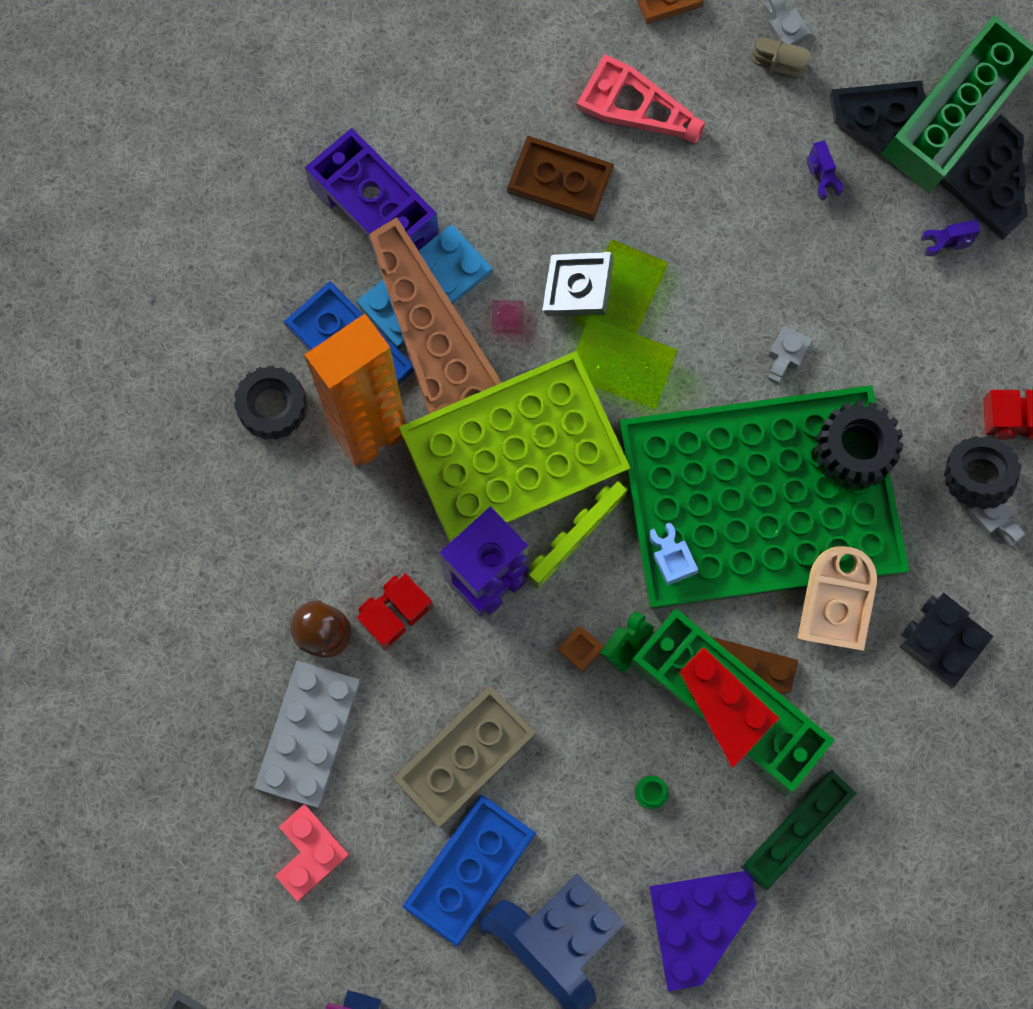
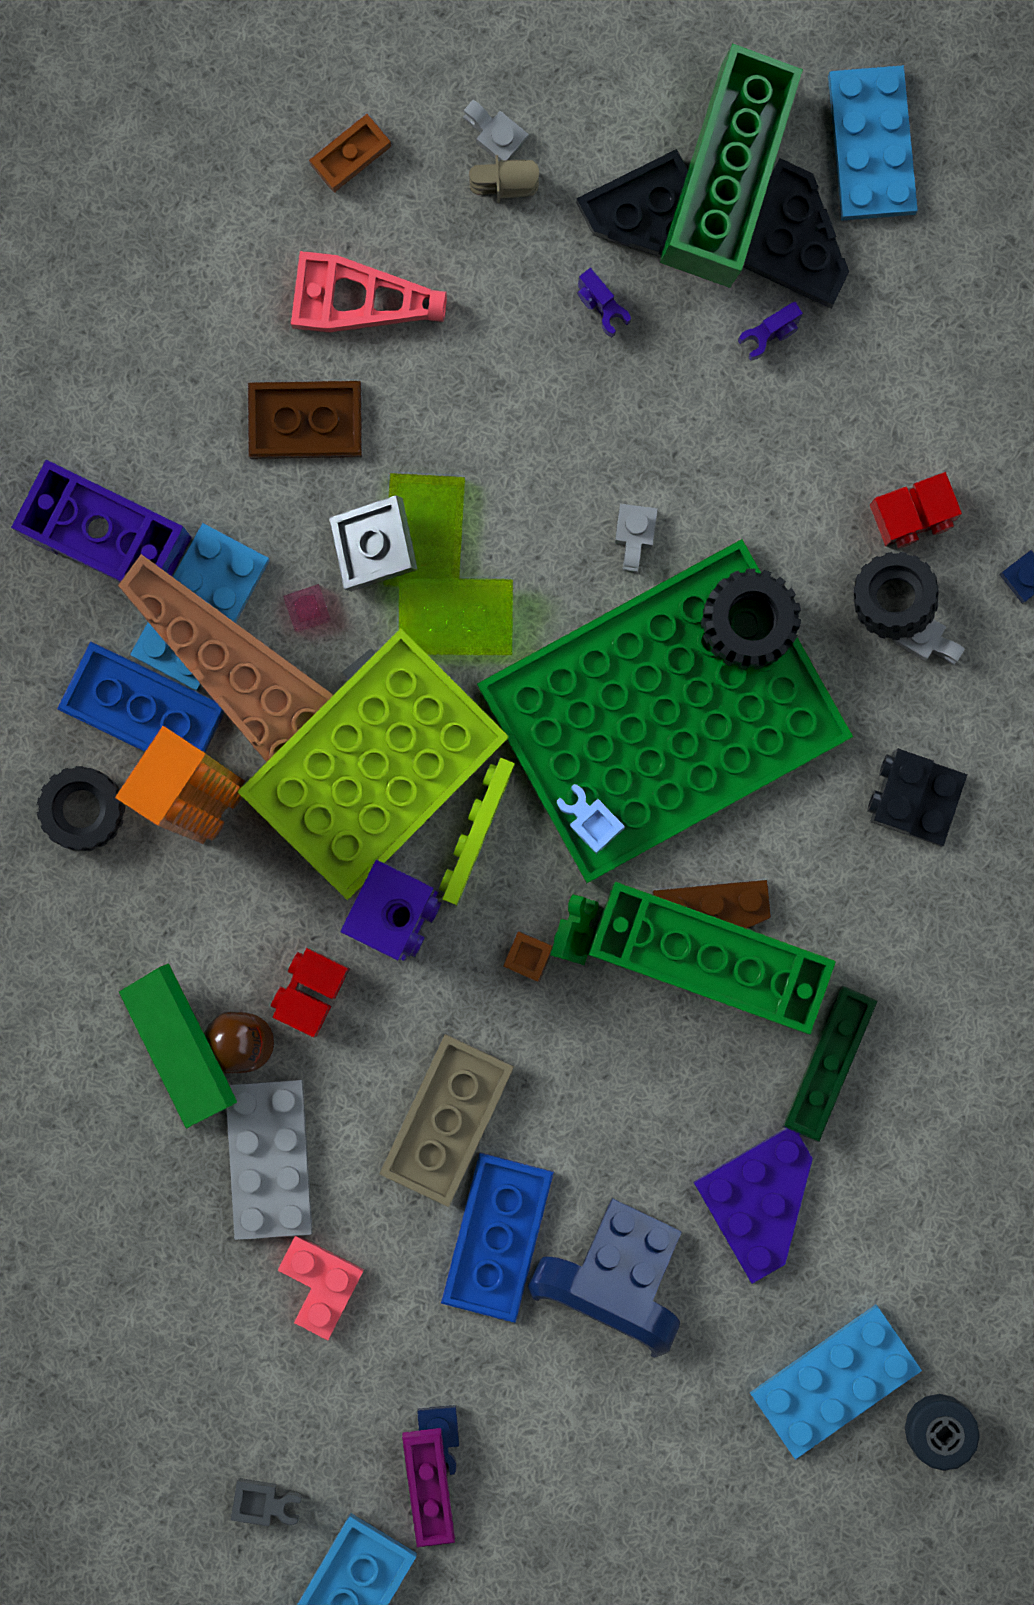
camera: 20 degrees left, 10 degrees up
(271, 612) = (177, 1046): none -> green tile
(651, 792) = (660, 1082): green plate -> none
(728, 706) = (710, 970): red wing -> none
(838, 602) = (788, 801): light nougat plate -> none

